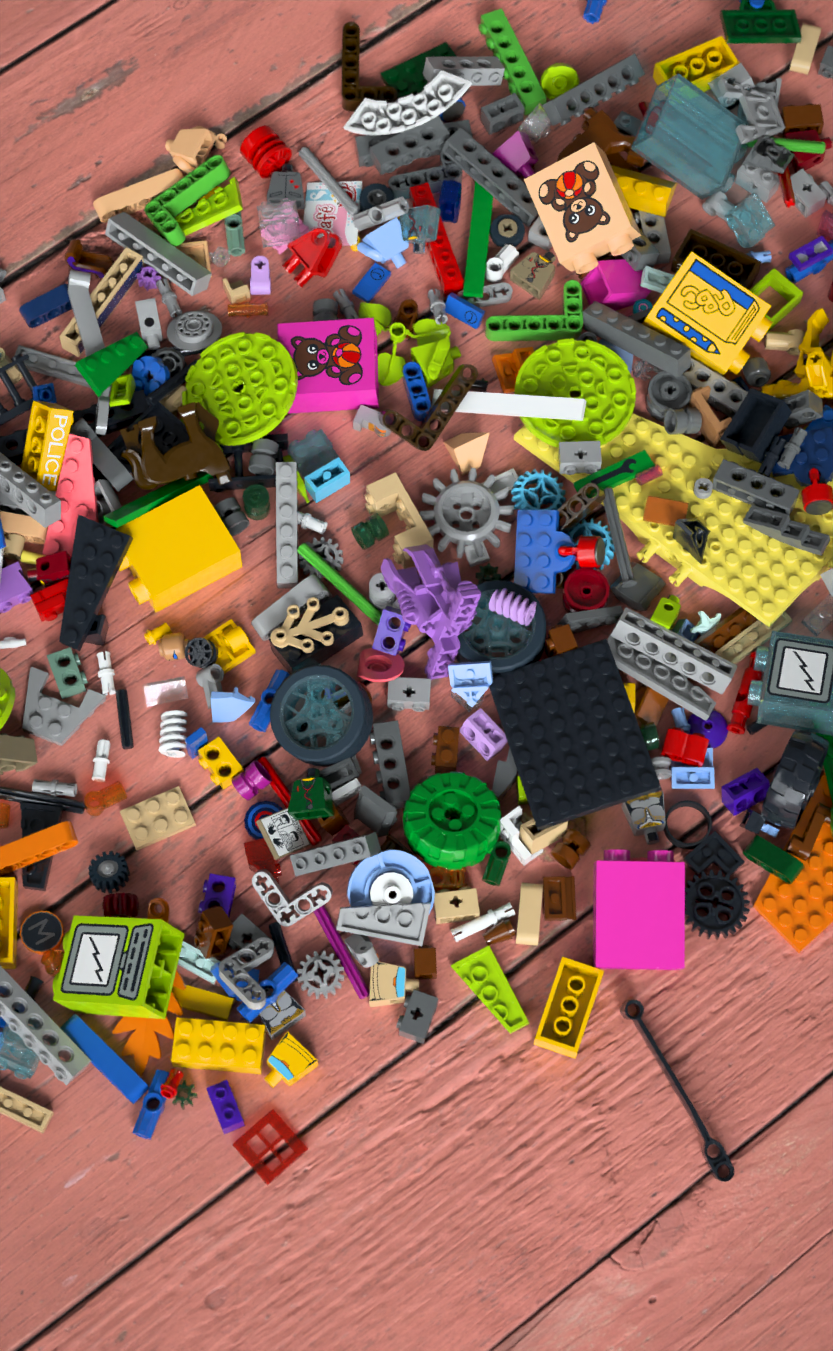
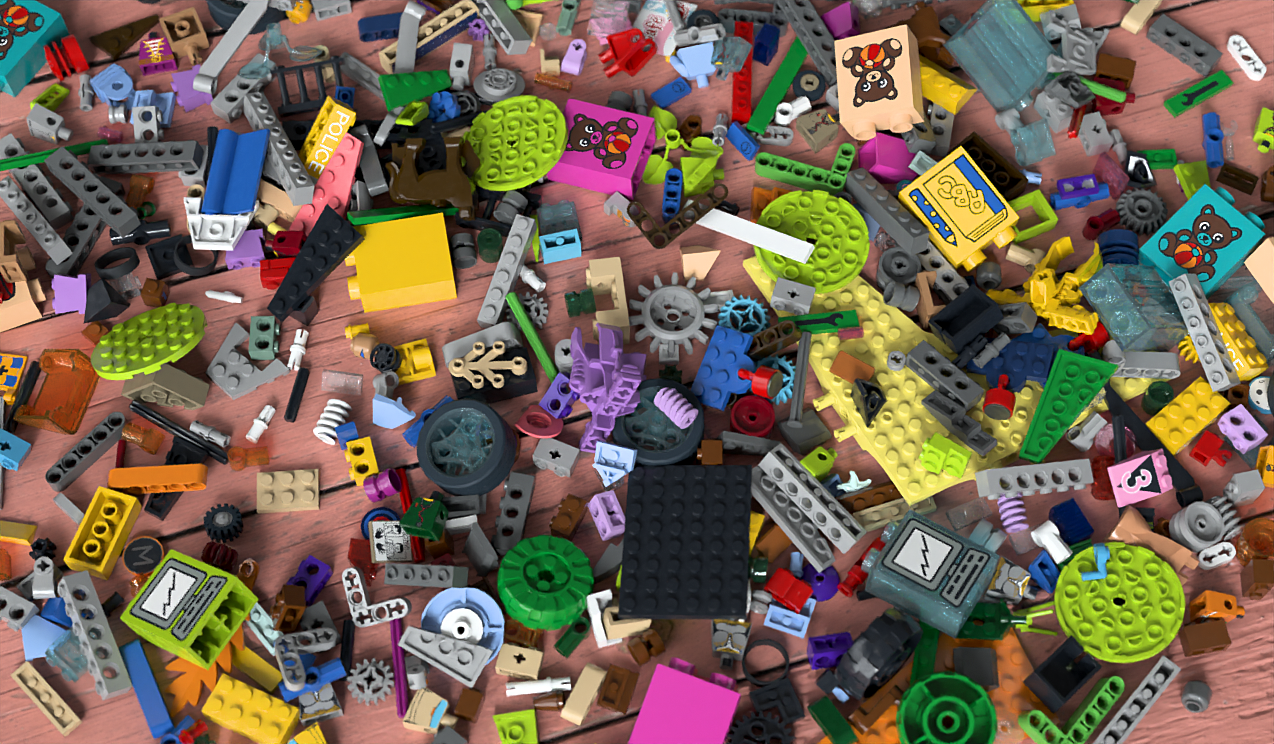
camera: 20 degrees right, 5 degrees down
(786, 567) = (944, 454): none -> lime plate

